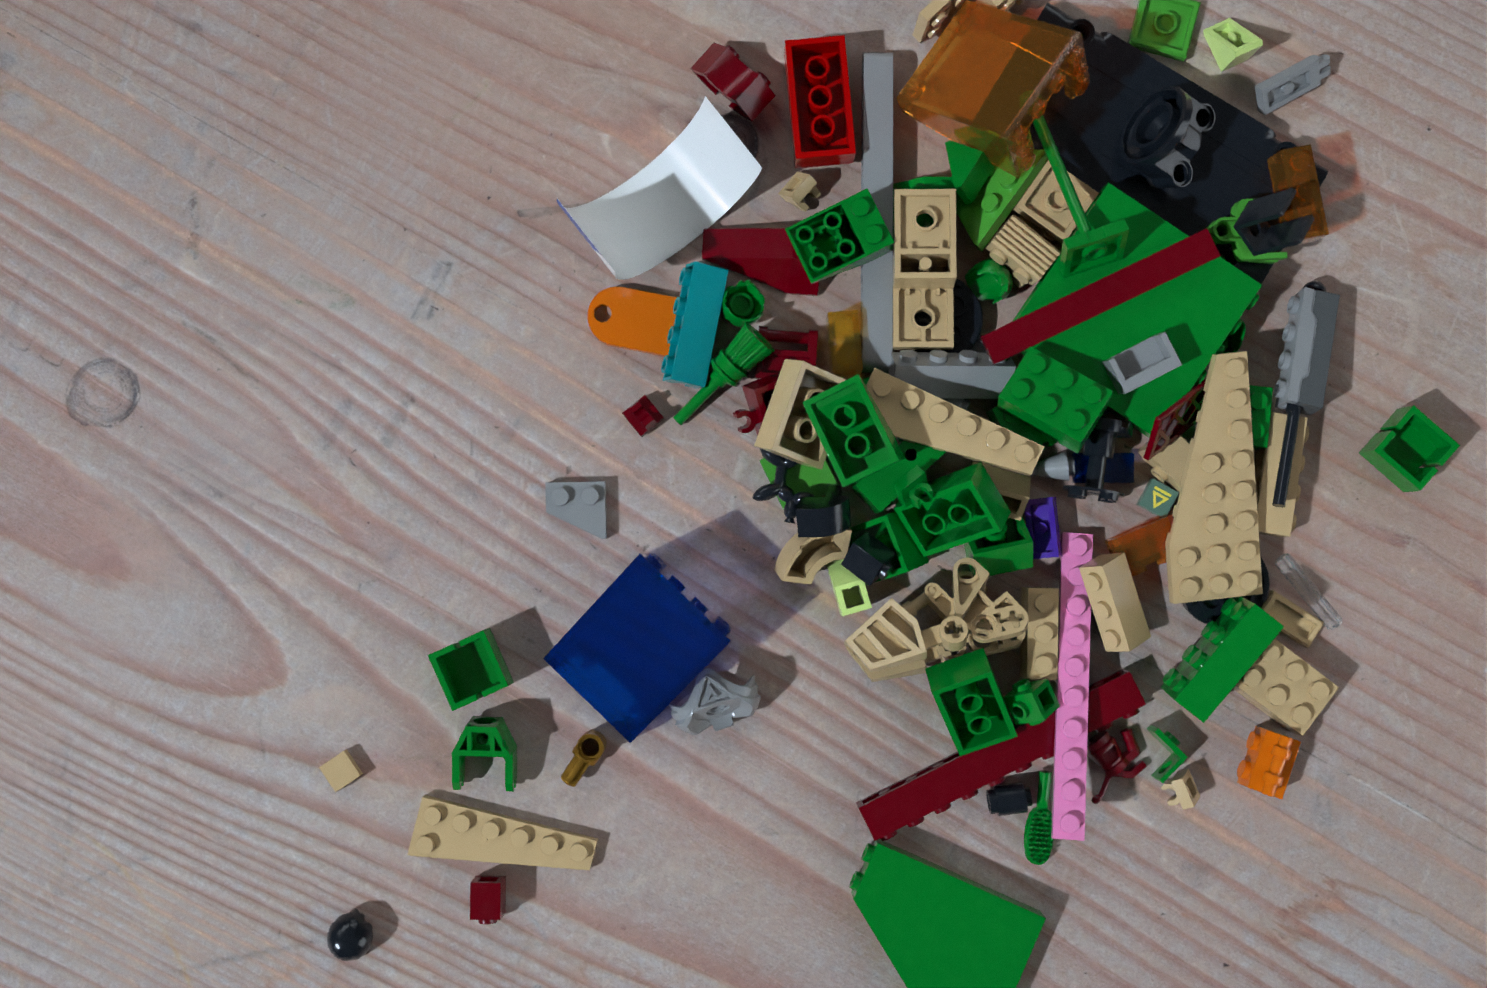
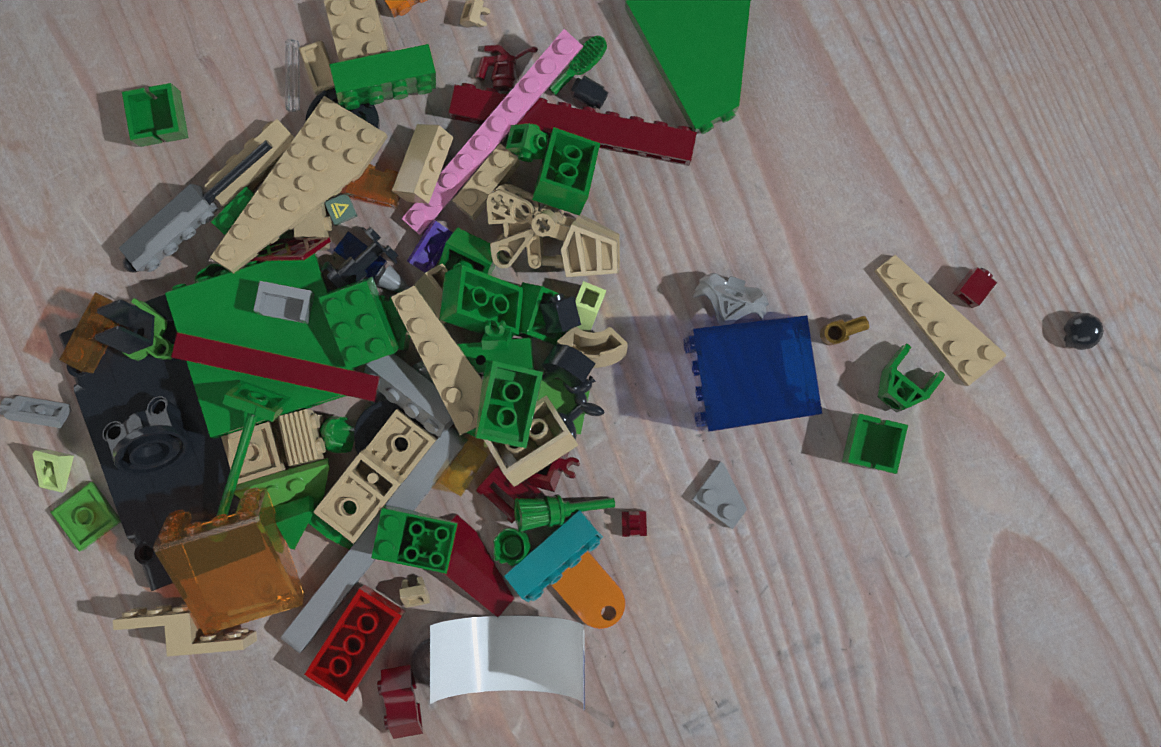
camera: 140 degrees left, 0 degrees up
(341, 770) = (1009, 443): tan tile -> none
(1176, 758) = (463, 35): green bracket -> none

